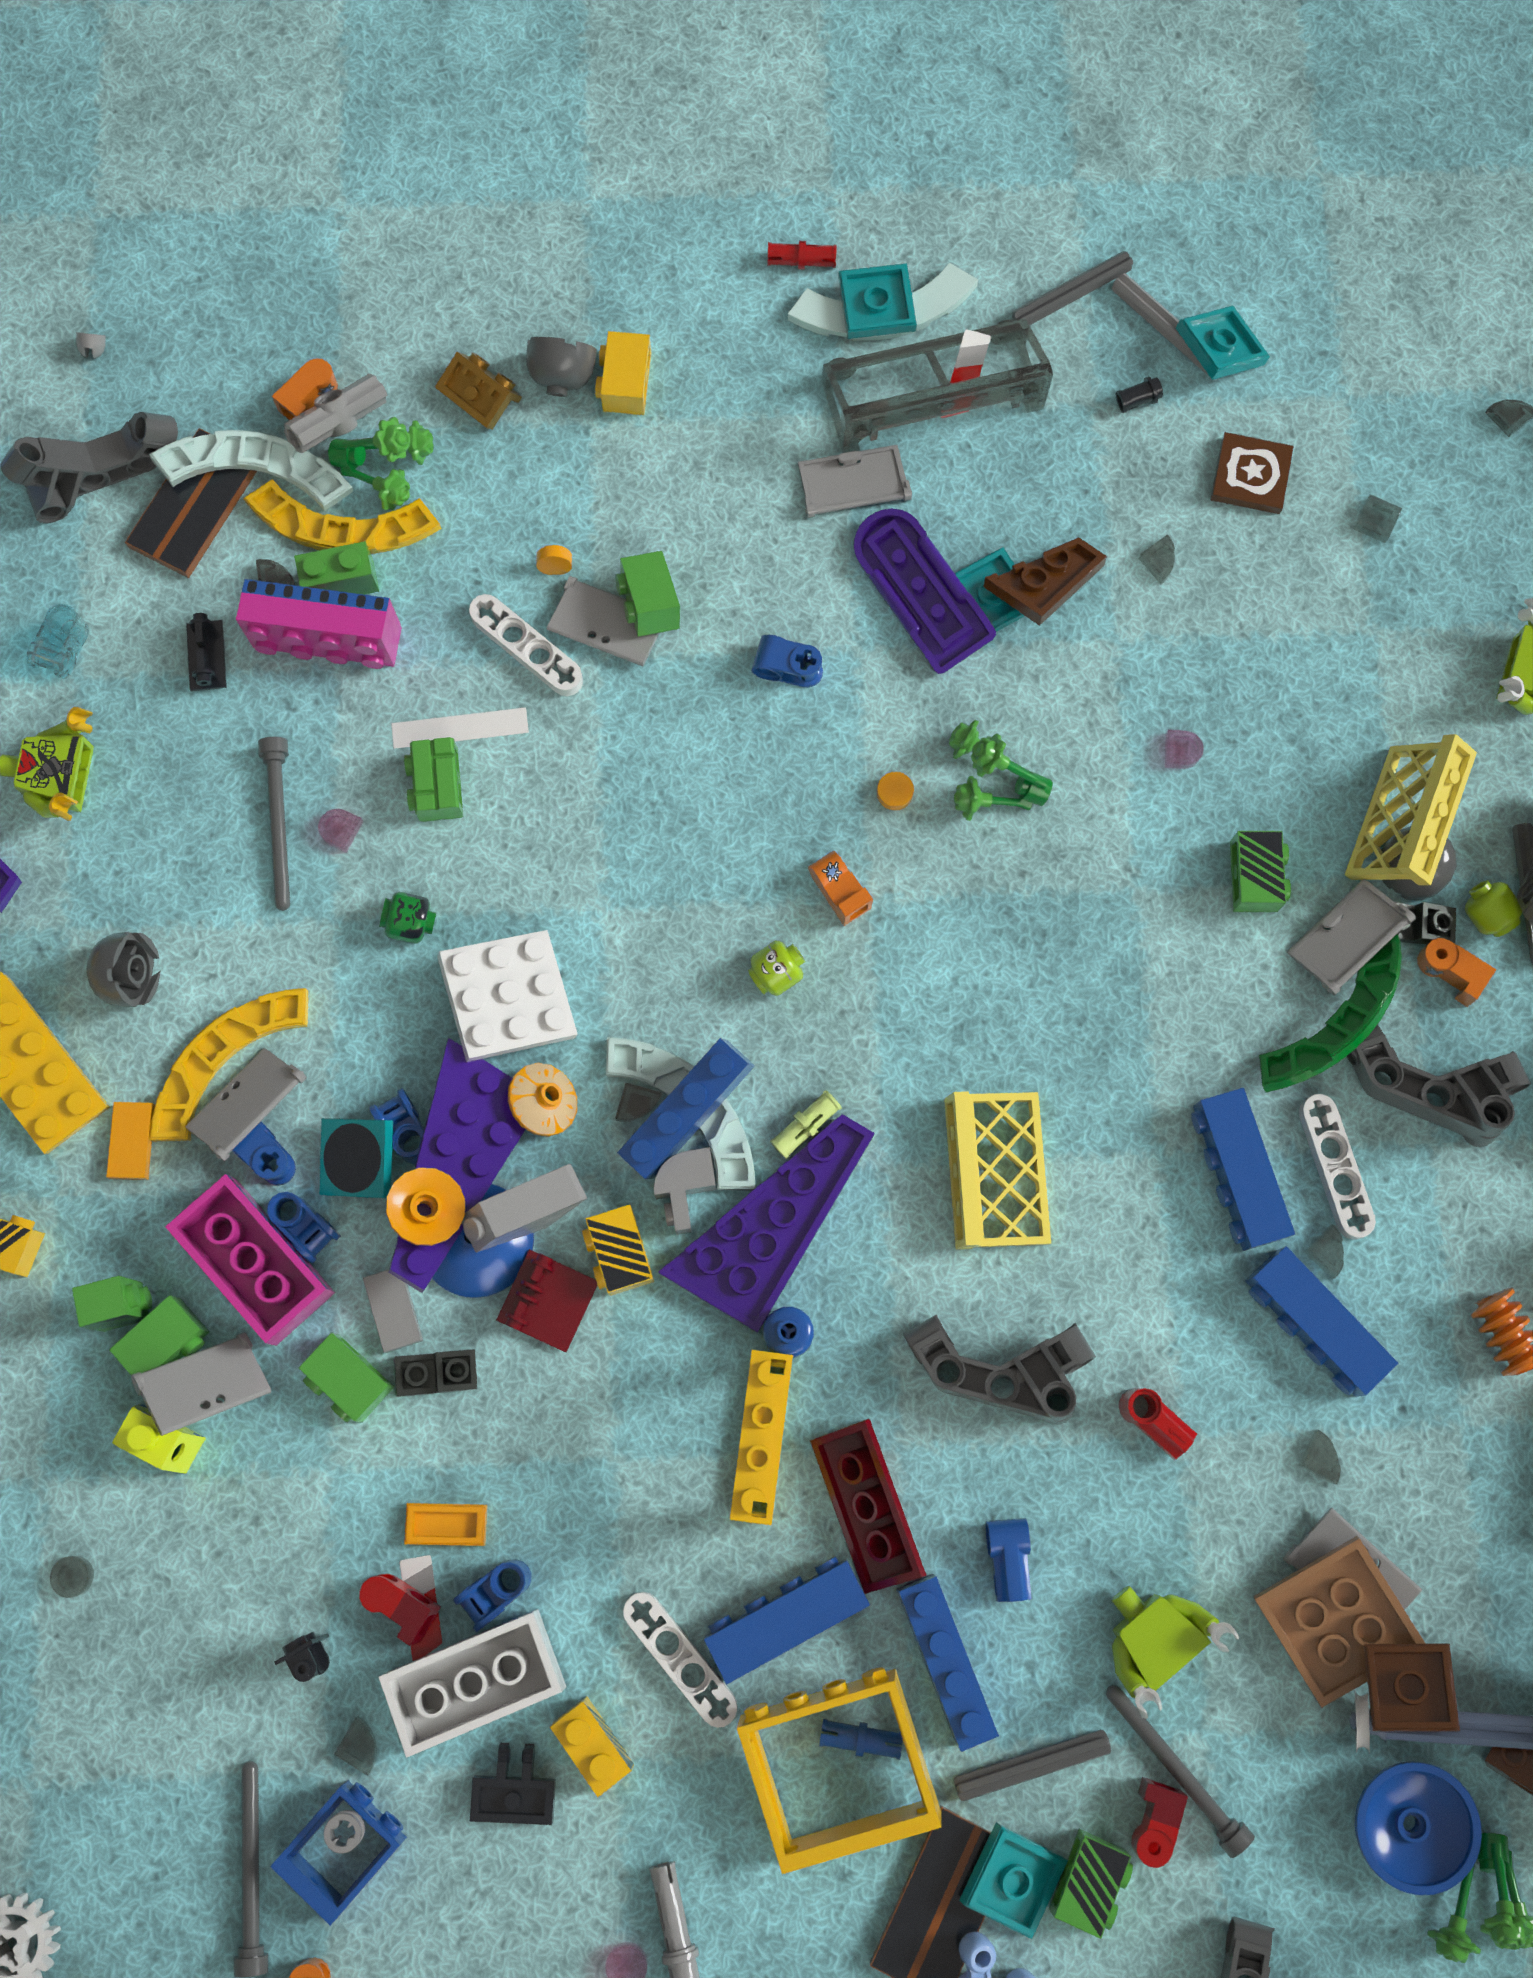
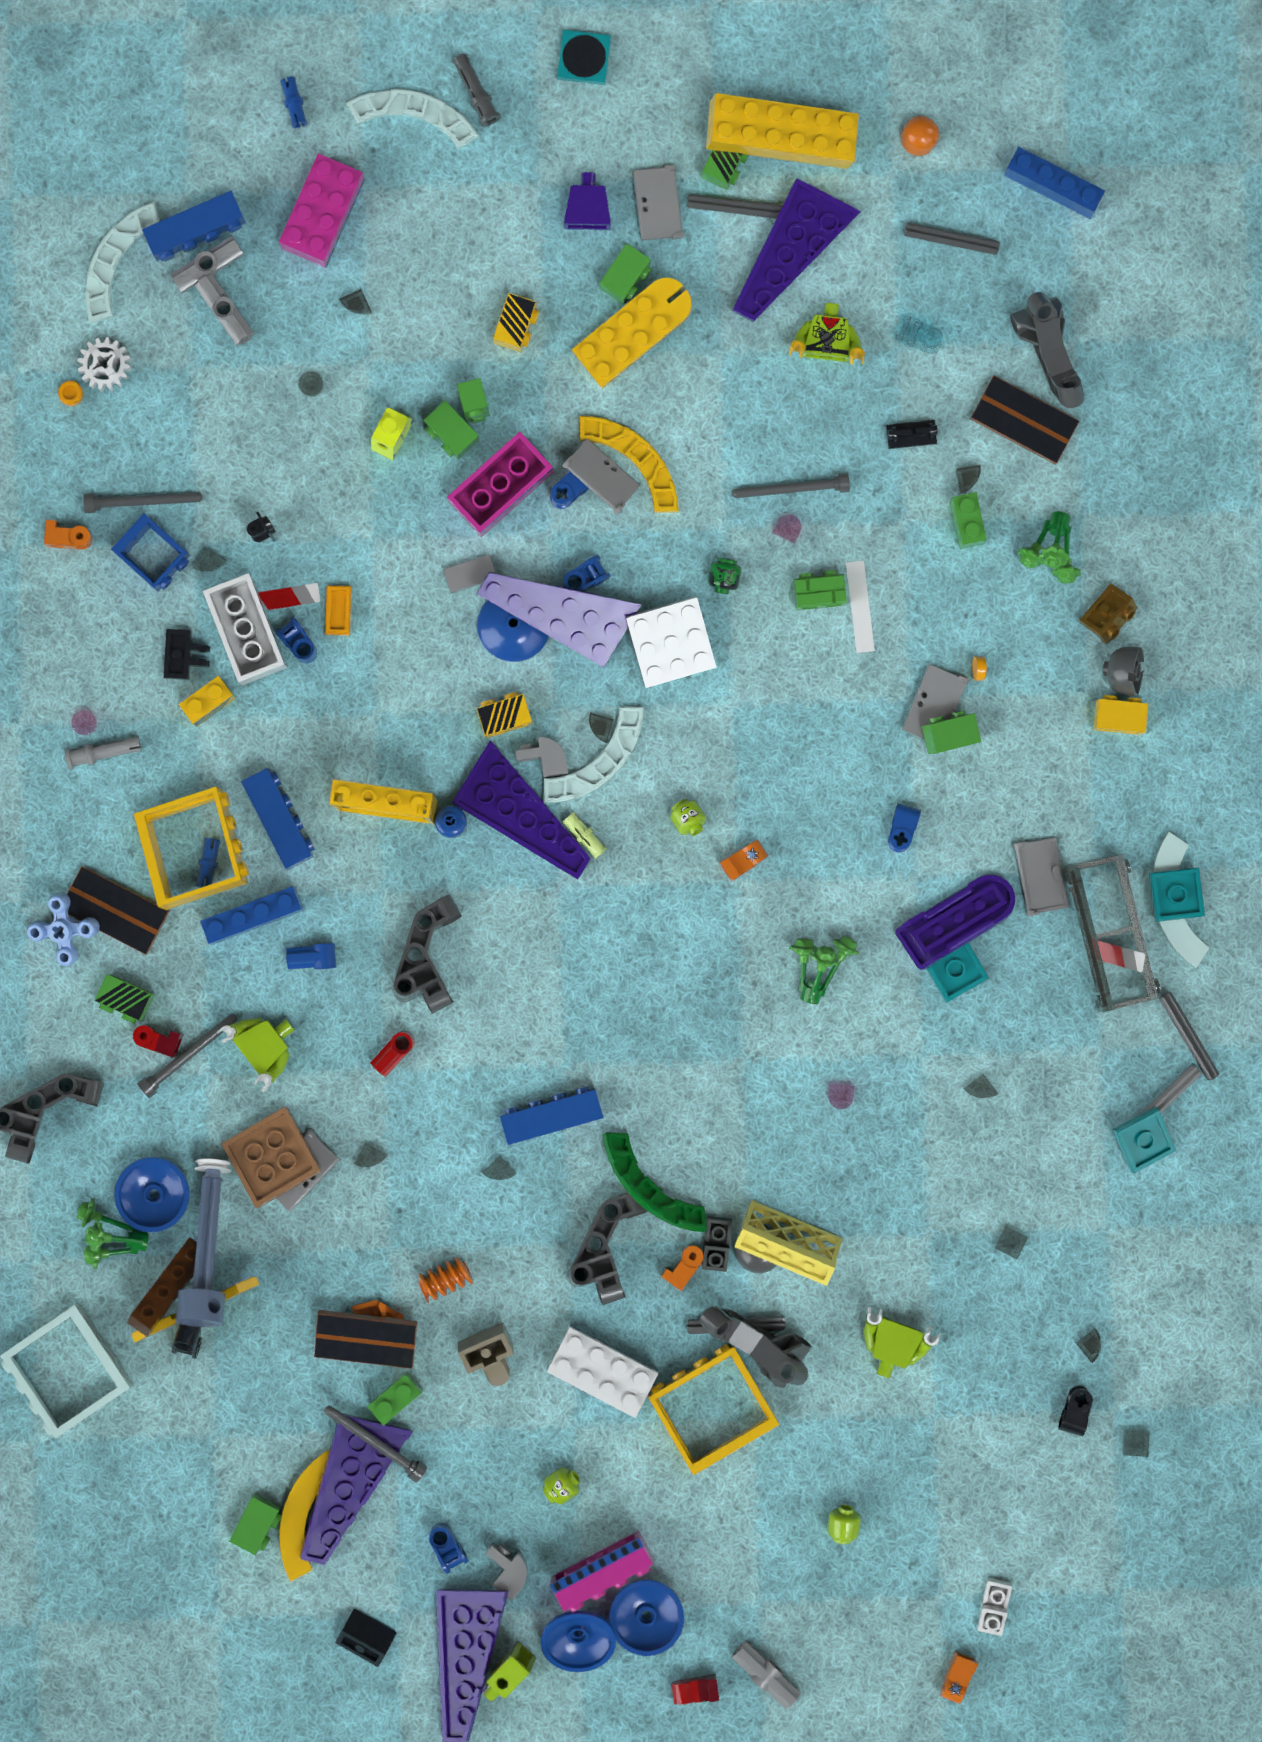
camera: 90 degrees right, 10 degrees up
(86, 341) = (1146, 342): light grey hinge -> none
(123, 968) = (689, 392): dark grey cylinder -> none
(130, 1141) = (579, 403): light orange tile -> none
(180, 1387) = (421, 450): light grey door -> none
(252, 452) = (1059, 460): light aqua tile -> none
(304, 387) = (1107, 493): orange leg -> none
(306, 1230) = (521, 516): blue piece -> none
(319, 623) = (928, 510): dark pink brick -> none
(328, 531) = (1001, 521): yellow tile -> none
(329, 1836) = (167, 550): light grey bush -> none
(335, 413) = (1087, 515): light grey piece -> none
(345, 1379) = (426, 546): bright green brick -> none
(356, 1157) = (564, 548): tile -> none
(401, 1604) = (291, 584): leg -> none
(430, 1188) = (529, 606): light orange dish -> none
(435, 1373) = (430, 601): pearl dark grey slope -> none
(523, 1209) = (528, 654): light grey slope -> none
(526, 645) = (919, 651): white beam -> none
(531, 1105) = (598, 657): tan dish -> none
(547, 1300) = (473, 670): dark red hinge -> none
(676, 1661) = (254, 751): white beam -> none
(686, 1108) = (593, 757): blue brick -> none
(802, 255) = (1216, 842): red pin -> none
(867, 1507) = (344, 870): dark red slope -> none
(895, 791) = (812, 899): light orange tile -> none
(965, 1170) = (557, 938): light yellow fence -> none
(1013, 1880) = (127, 952): teal tile -> none
(1032, 1765) = (191, 967): dark grey axle -> none
(1048, 582) = (960, 1007): reddish brown wing -> none
(1139, 394) = (1105, 1079): black pin -> none
(1252, 473) = (1046, 1156): reddish brown tile -> none
(1259, 871) = (751, 1140): brick -> none
(1320, 1322) = (453, 1160): blue brick -> none
(1343, 1164) = (554, 1181): white beam -> none
(1366, 926) = (704, 1200): light grey door -> none
(1411, 1688) = (231, 1193): reddish brown tile -> none
(1493, 908) = (725, 1294): lime head -> none

